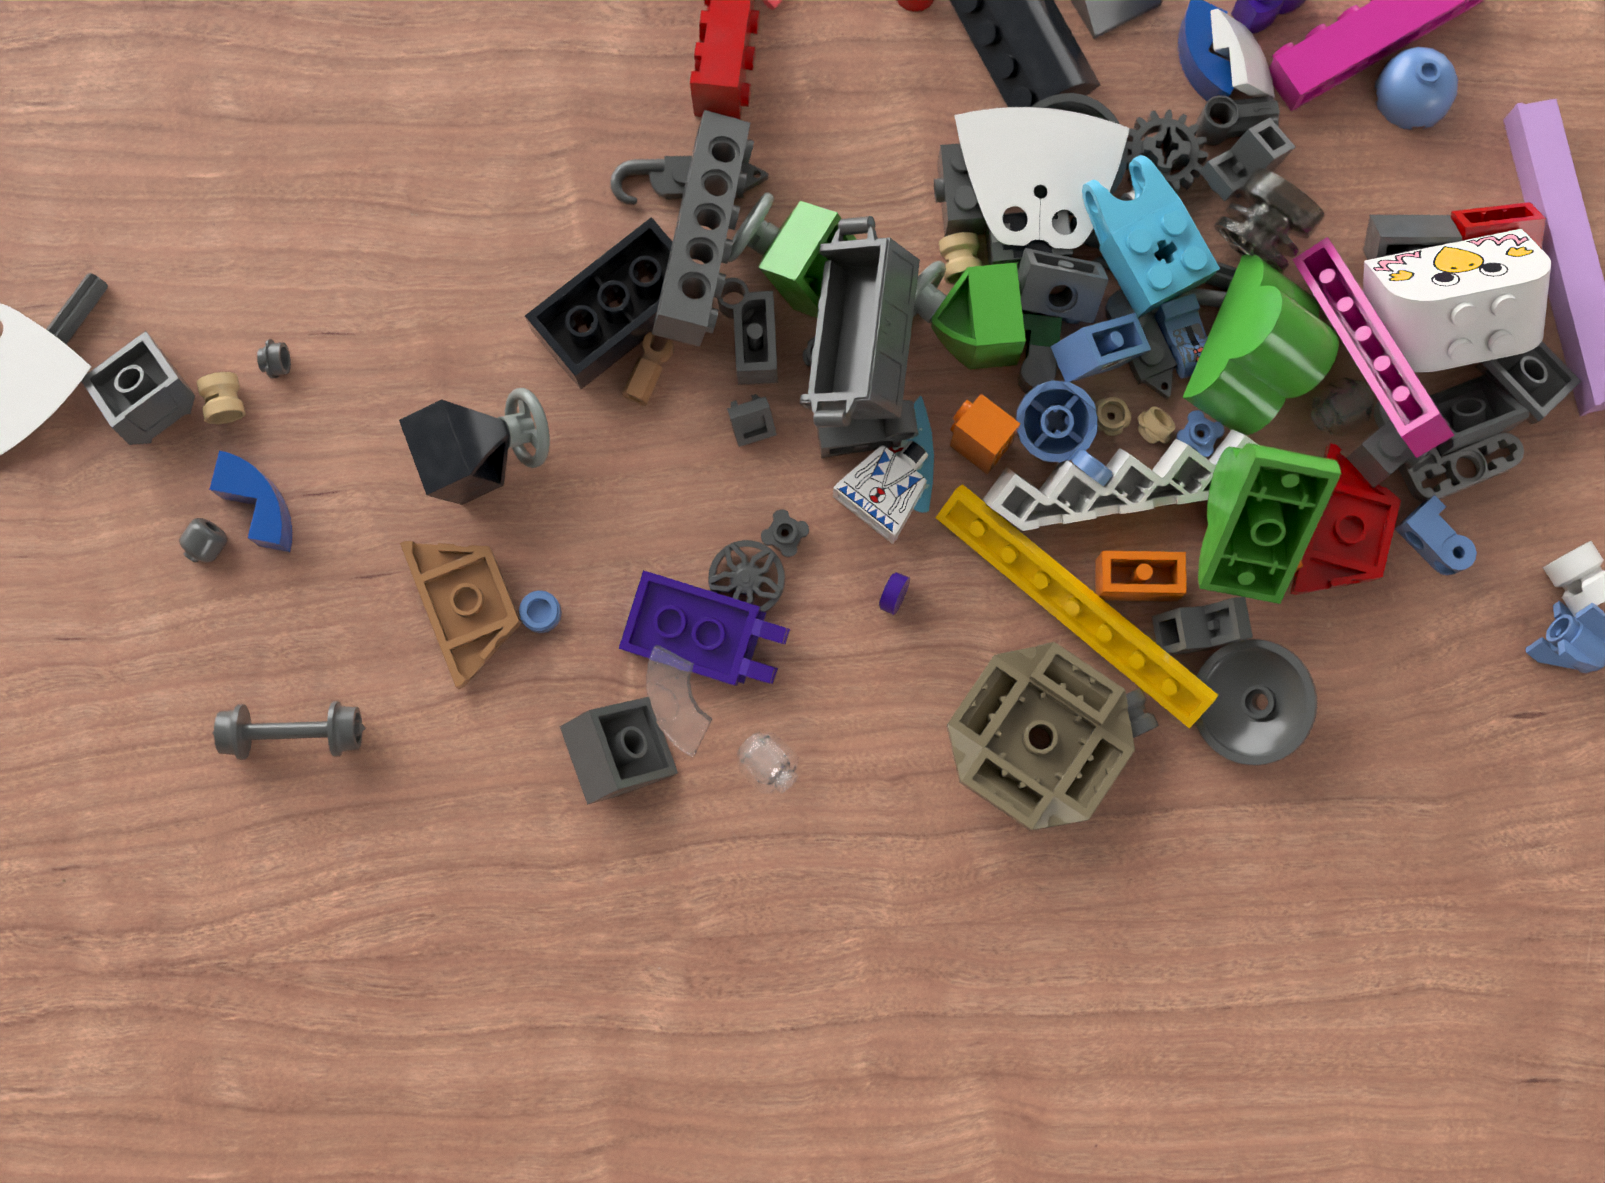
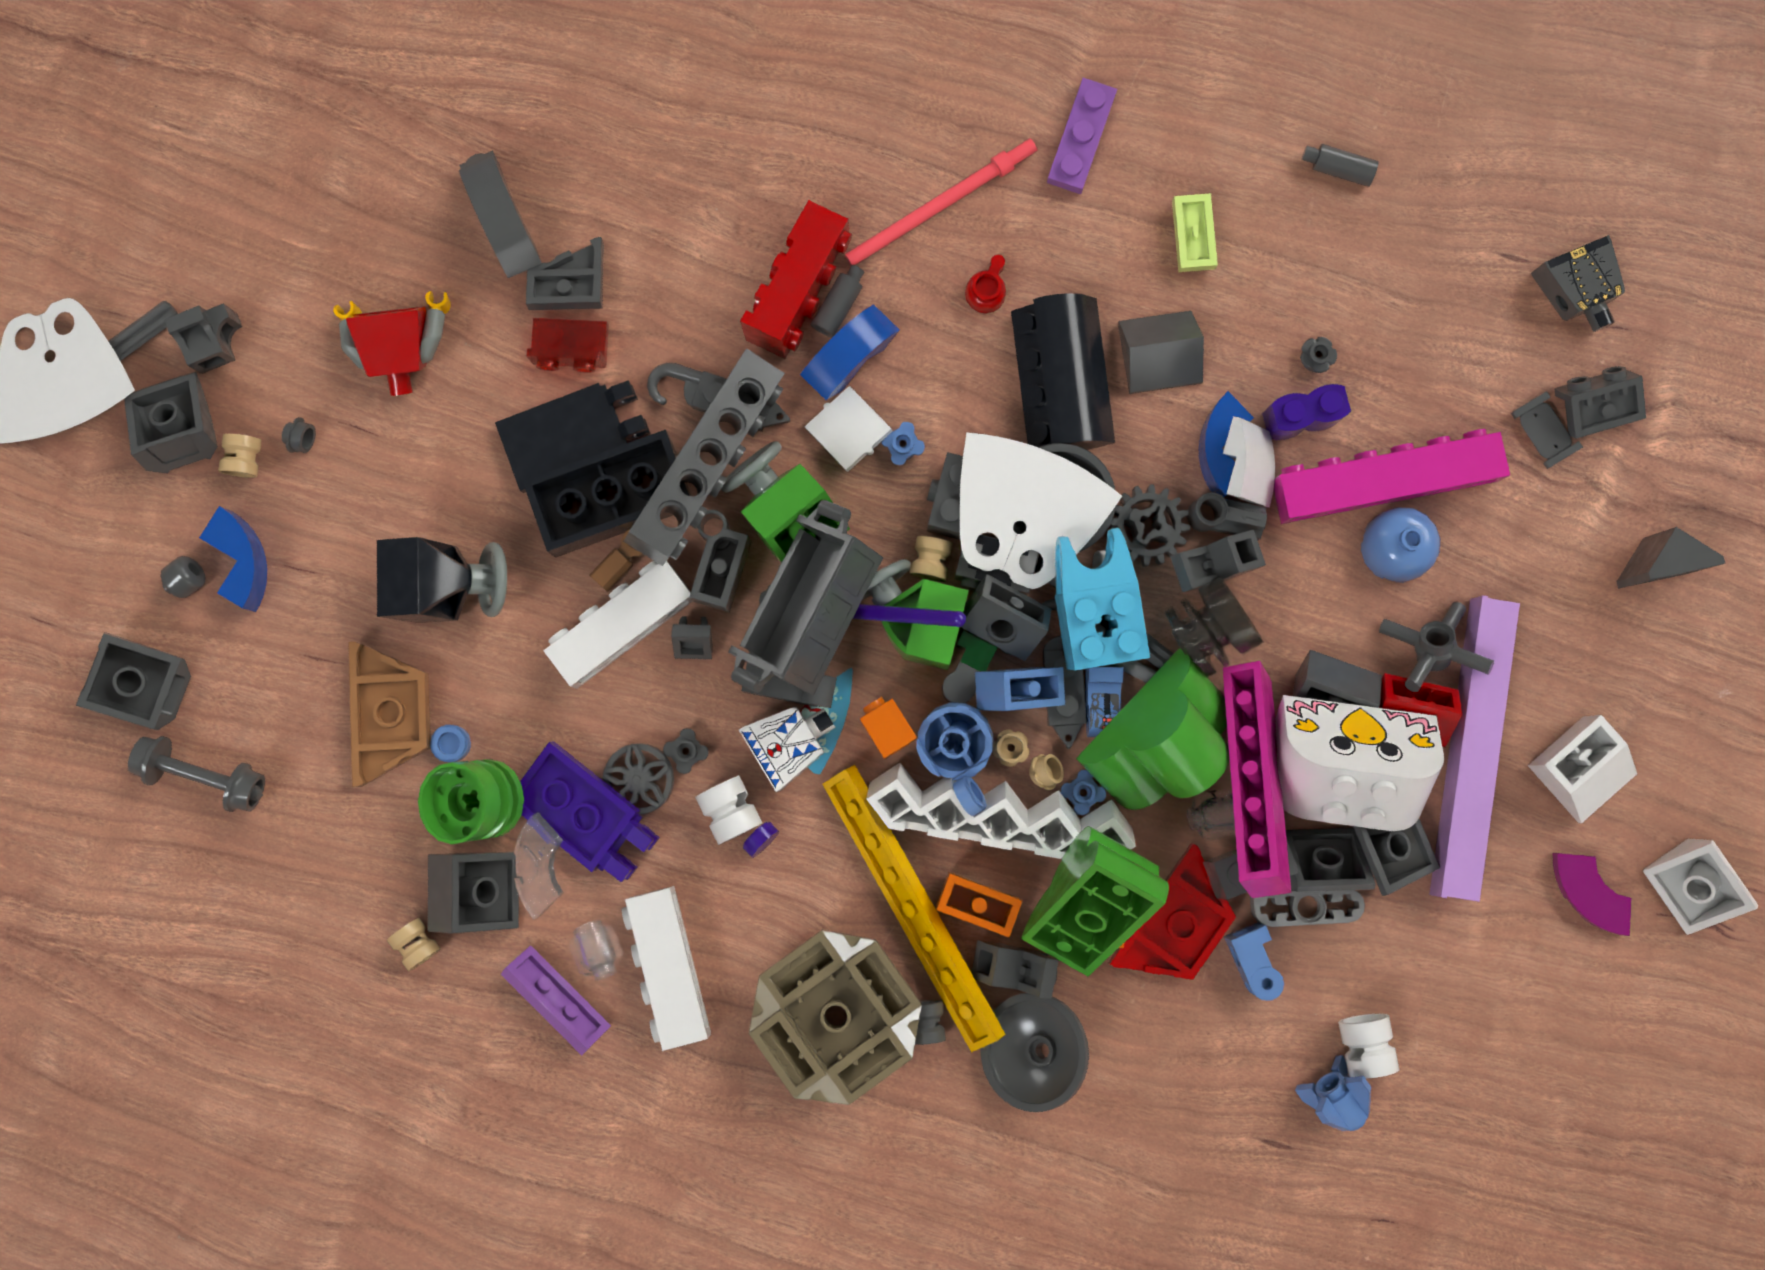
camera: 20 degrees right, 5 degrees up
(144, 290) = (205, 336): none -> dark grey brick
(190, 660) = (135, 683): none -> dark grey slope
(339, 230) = (393, 340): none -> red torso
(405, 70) = (498, 214): none -> dark grey arch
(495, 115) = (568, 280): none -> dark grey wing
(518, 177) = (568, 343): none -> clear red bracket
(547, 258) = (569, 430): none -> black tile
(566, 656) = (470, 800): none -> bright green wheel
(580, 831) = (418, 951): none -> tan wheel
(671, 428) = (618, 624): none -> white brick
(745, 829) = (555, 1000): none -> medium lavender plate
(774, 46) = (838, 302): none -> dark grey cylinder
(802, 87) = (848, 351): none -> blue brick
(830, 163) = (848, 428): none -> white piece
(848, 755) = (667, 968): none -> white brick
(851, 573) = (728, 809): none -> white wheel
(889, 170) = (913, 445): none -> medium blue plate
(970, 304) = (910, 615): none -> dark purple piece
(1491, 169) = (1436, 646): none -> dark grey bar

